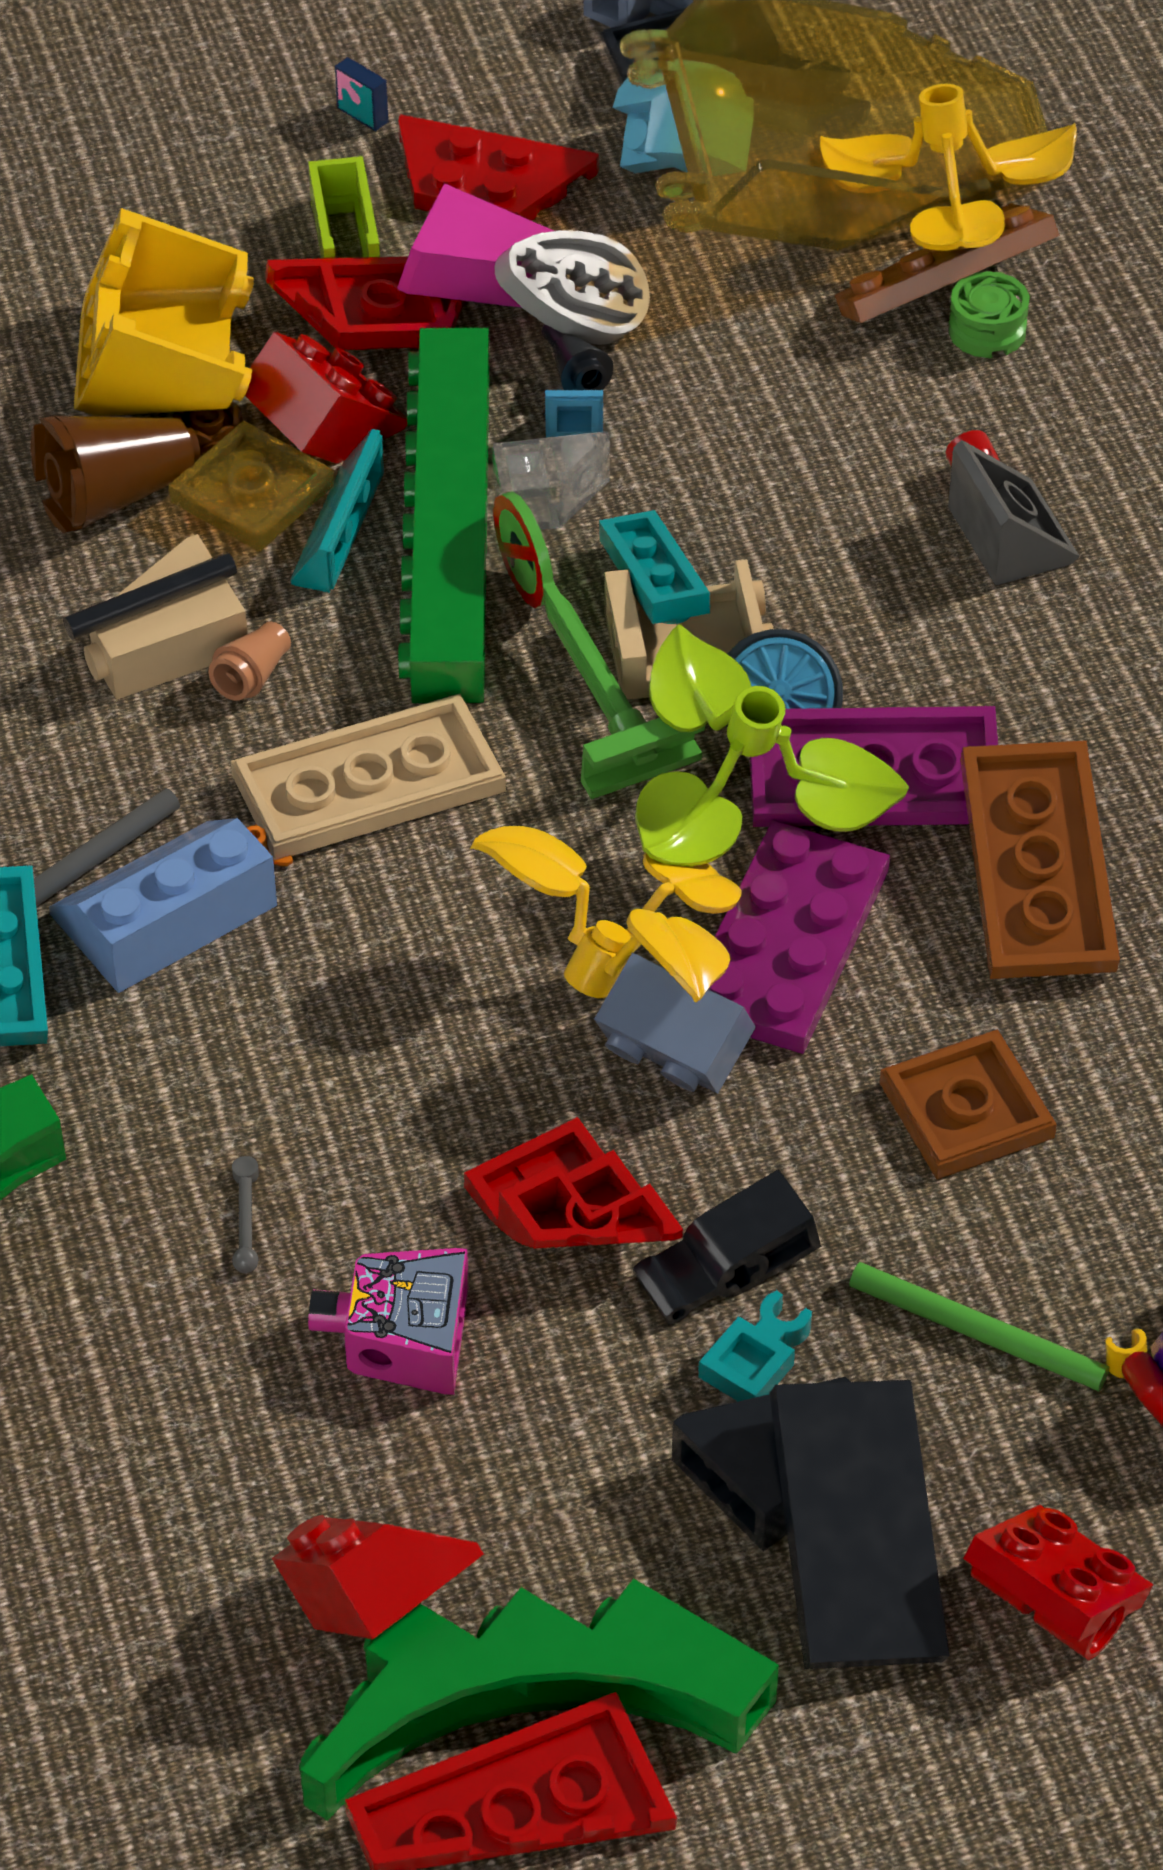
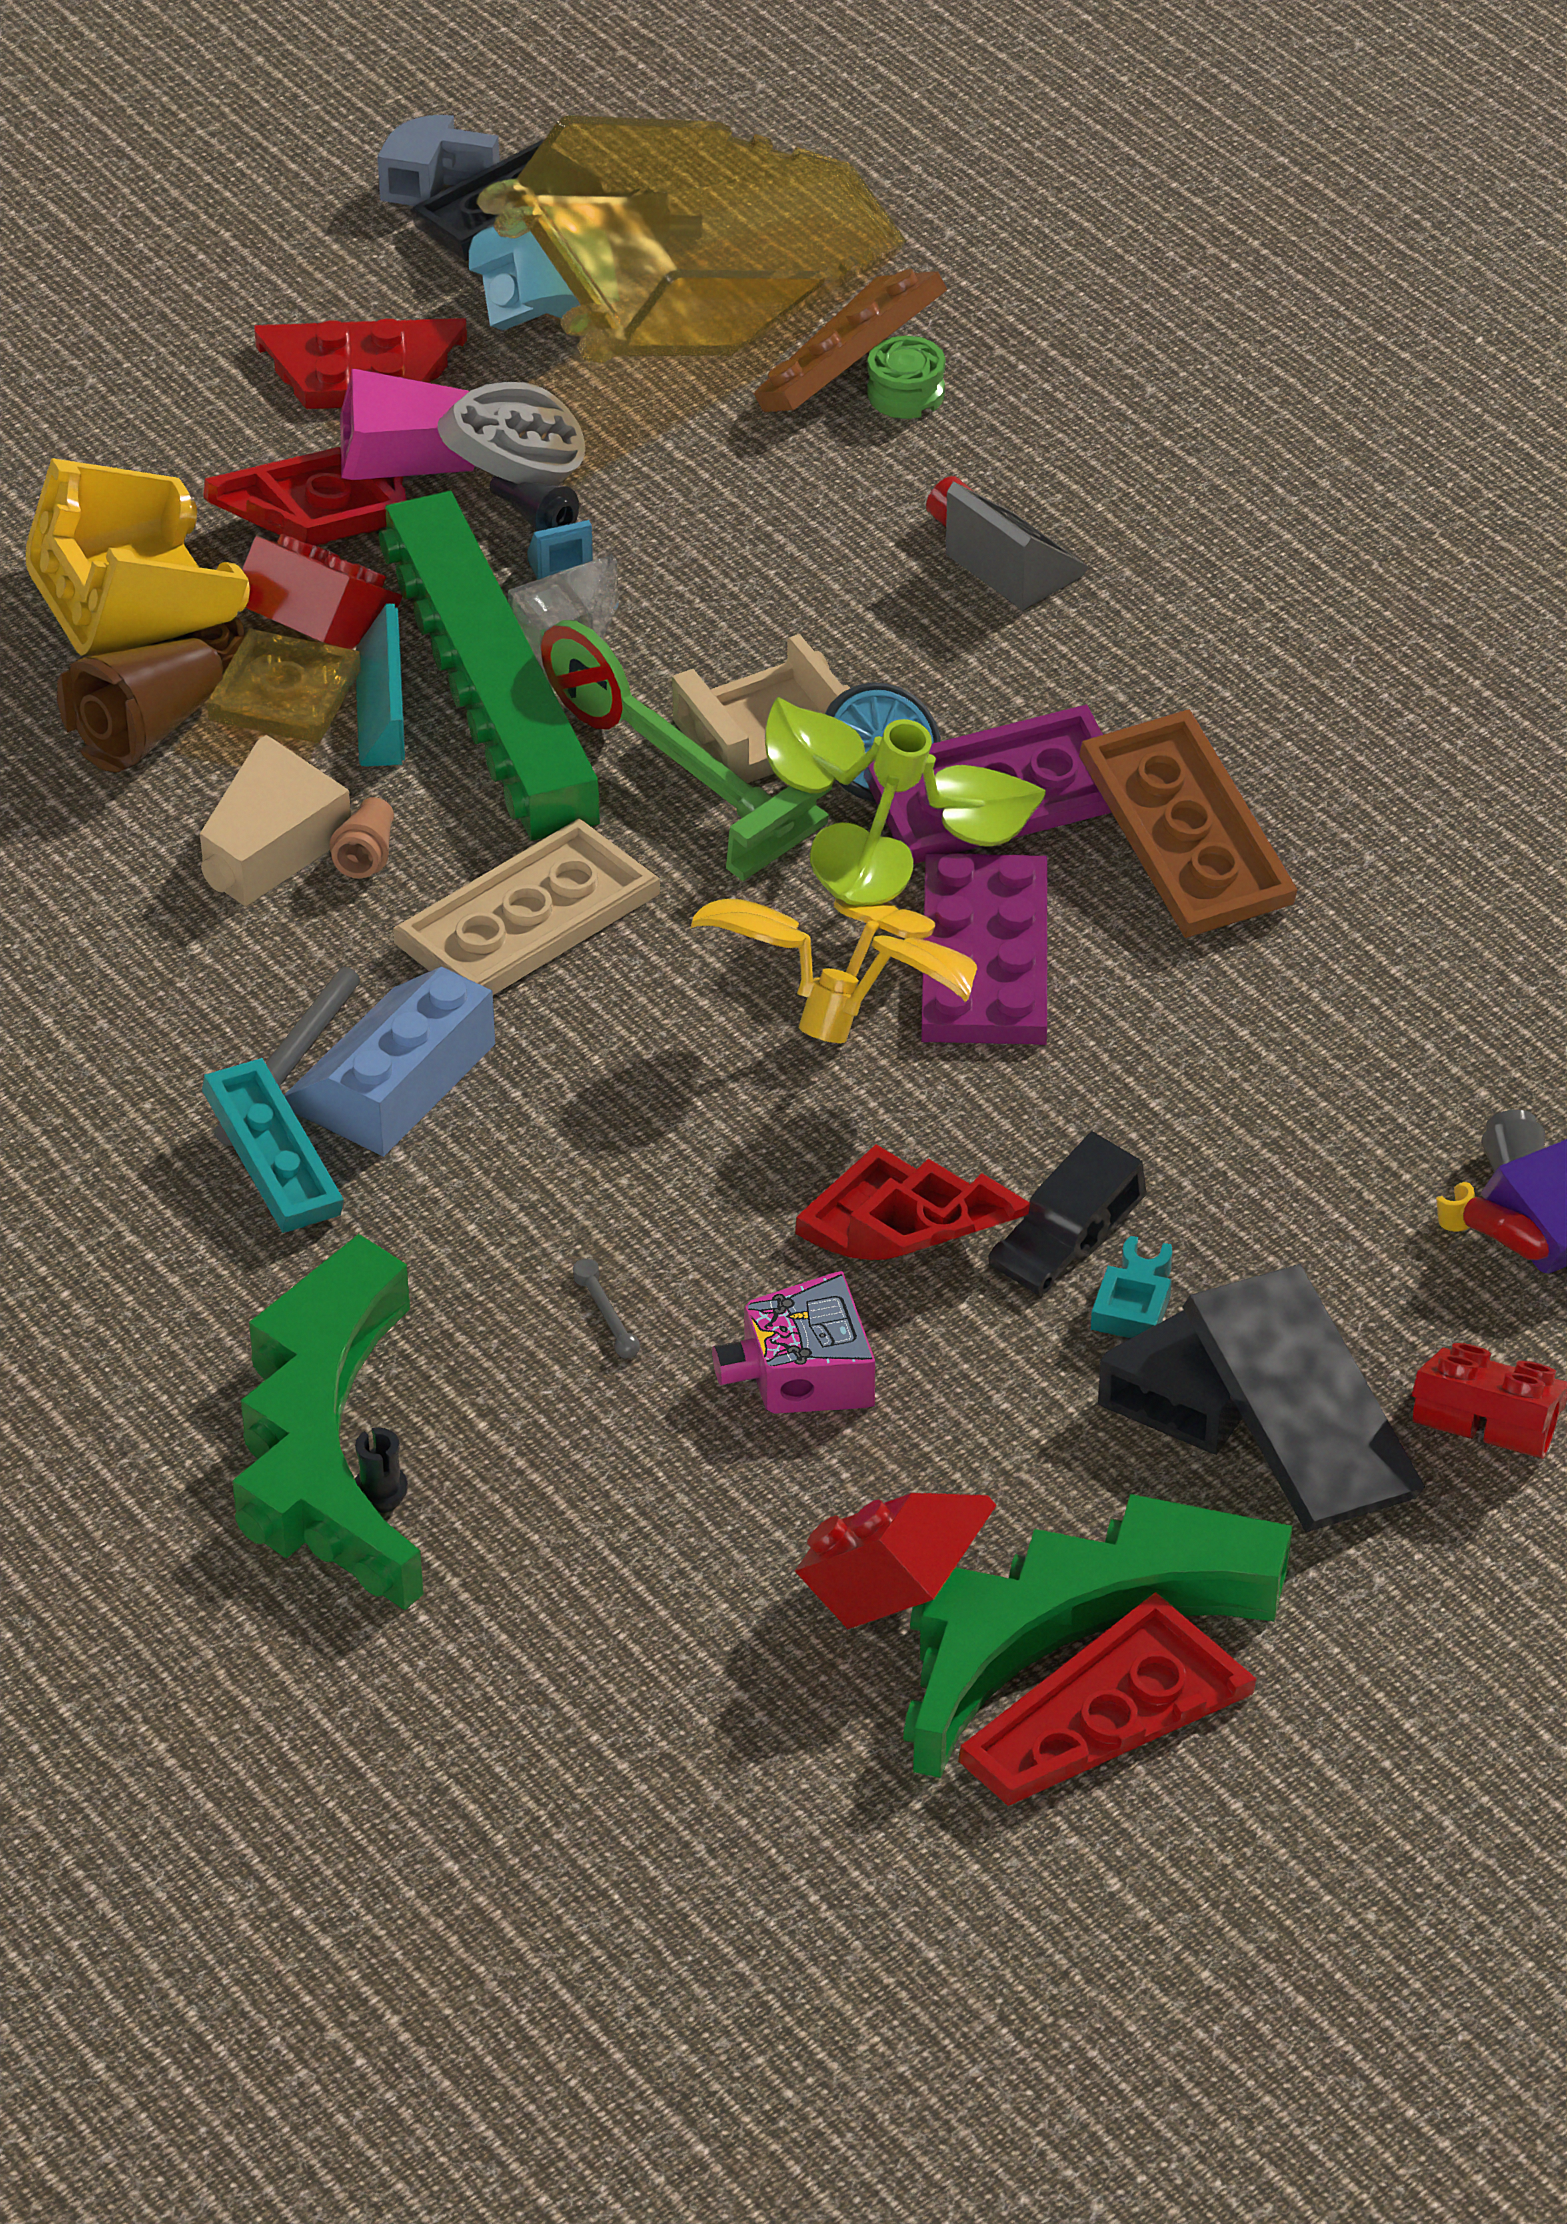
camera: 20 degrees left, 5 degrees down
(149, 595) = (253, 797): black bar -> none
(342, 188) = (240, 401): lime window -> none
(361, 94) = (208, 314): tile -> none
(657, 567) = (725, 666): teal plate -> none
(658, 1020) = (928, 1042): sand blue brick -> none
(944, 126) = (810, 212): yellow plant -> none
(967, 1104) = (1216, 1045): dark orange tile -> none
(979, 1326) = (1316, 1221): bright green bar -> none

